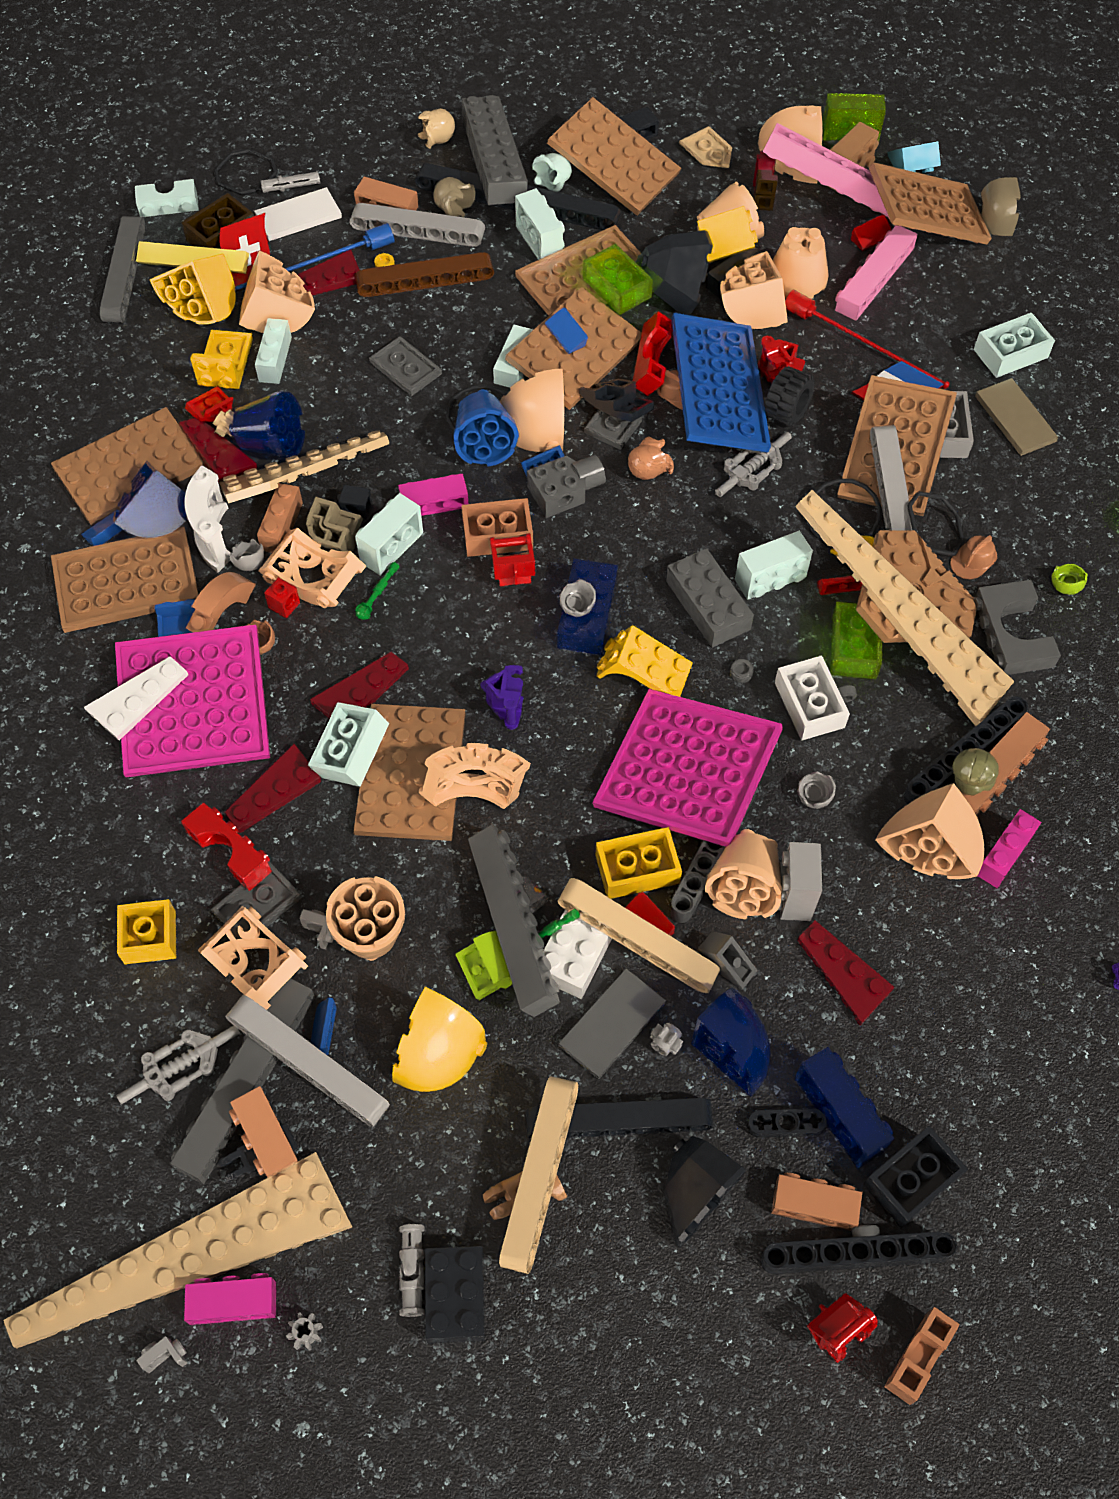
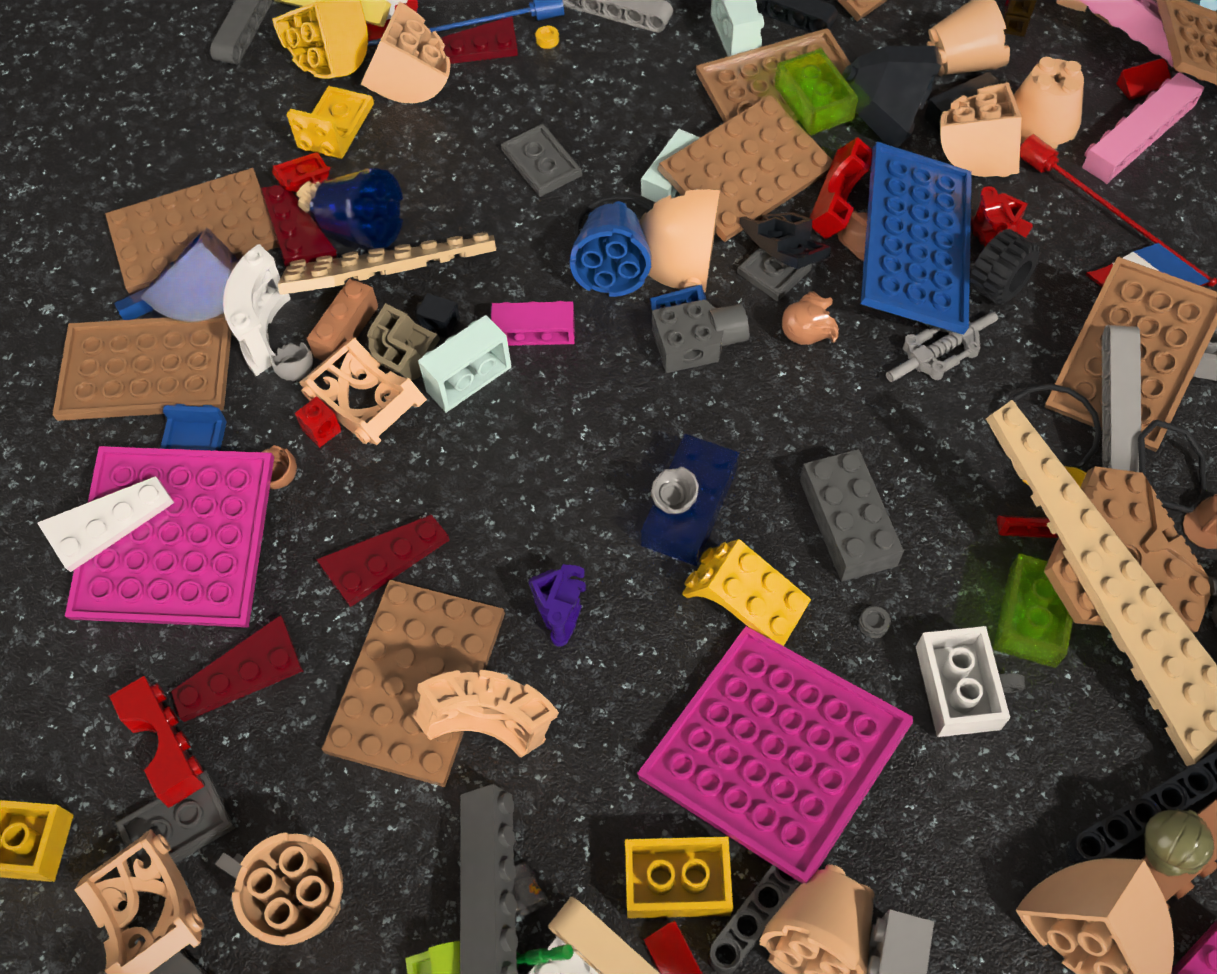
camera: 15 degrees right, 0 degrees up
(216, 598) = (237, 408): nougat arch -> none
(273, 351) = (391, 120): light aqua brick -> none
(348, 744) = (342, 632): light aqua brick -> none
(364, 609) = (412, 455): green piece -> none
(424, 274) = (589, 56): reddish brown beam -> none
(495, 520) = (599, 376): nougat brick -> none
(513, 568) = (607, 433): red piece -> none
(567, 331) = (739, 145): blue slope -> none
(729, 233) = (964, 54): yellow brick -> none
(773, 565) = (943, 486): light aqua brick -> none
(816, 790) = (945, 817): light grey hair -> none

